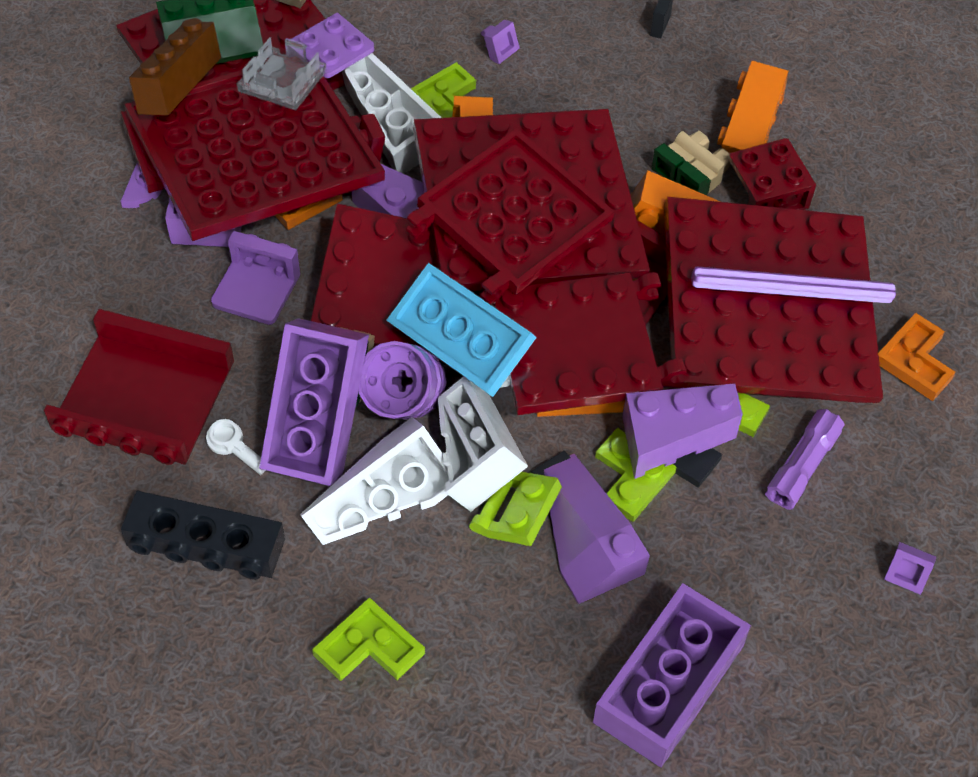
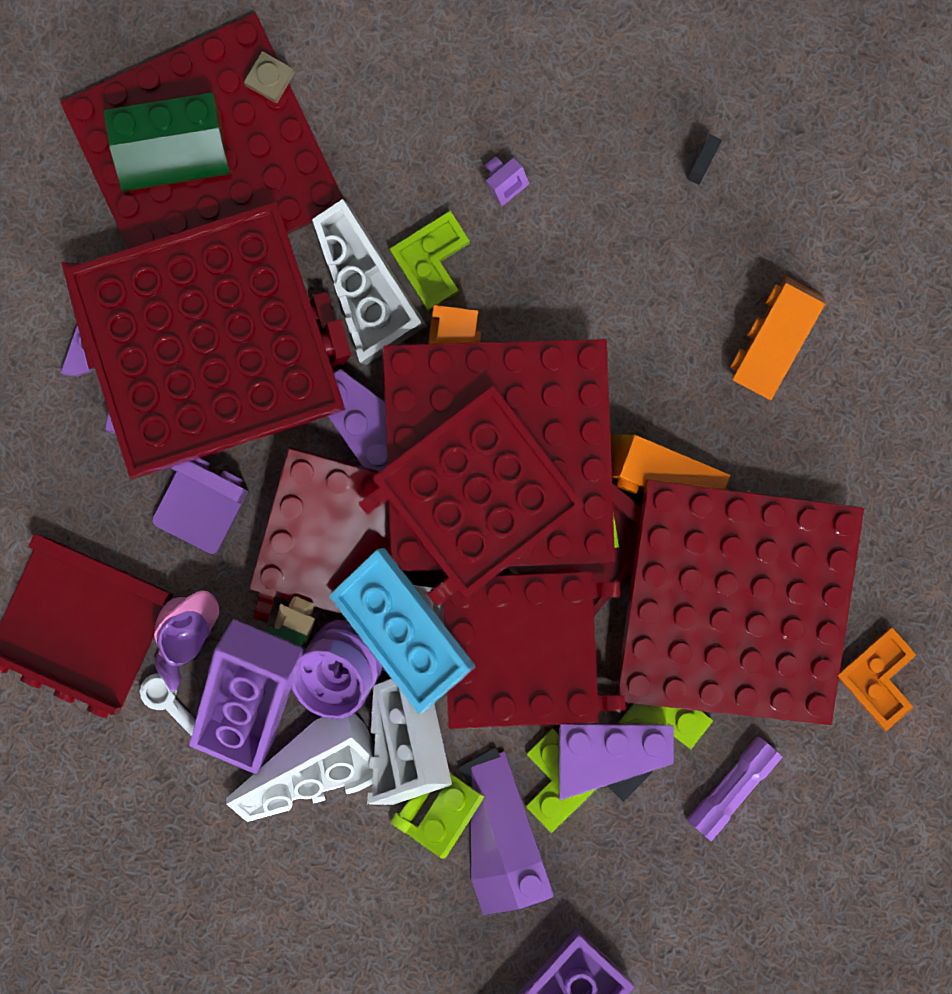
camera: 10 degrees right, 30 degrees up
(175, 67) = (122, 231): reddish brown brick -> none
(189, 521) = (74, 798): black brick -> none
(248, 372) = (182, 633): none -> medium lavender hair
(282, 77) = (242, 254): clear piece -> none
(337, 44) = (303, 200): medium lavender bracket -> none
(368, 633) = (283, 928): lime plate -> none
(691, 163) = (691, 378): hips -> none
(774, 175) = (777, 431): dark red bracket -> none
(793, 284) = (762, 604): axle -> none
(910, 568) = (808, 924): medium lavender tile -> none

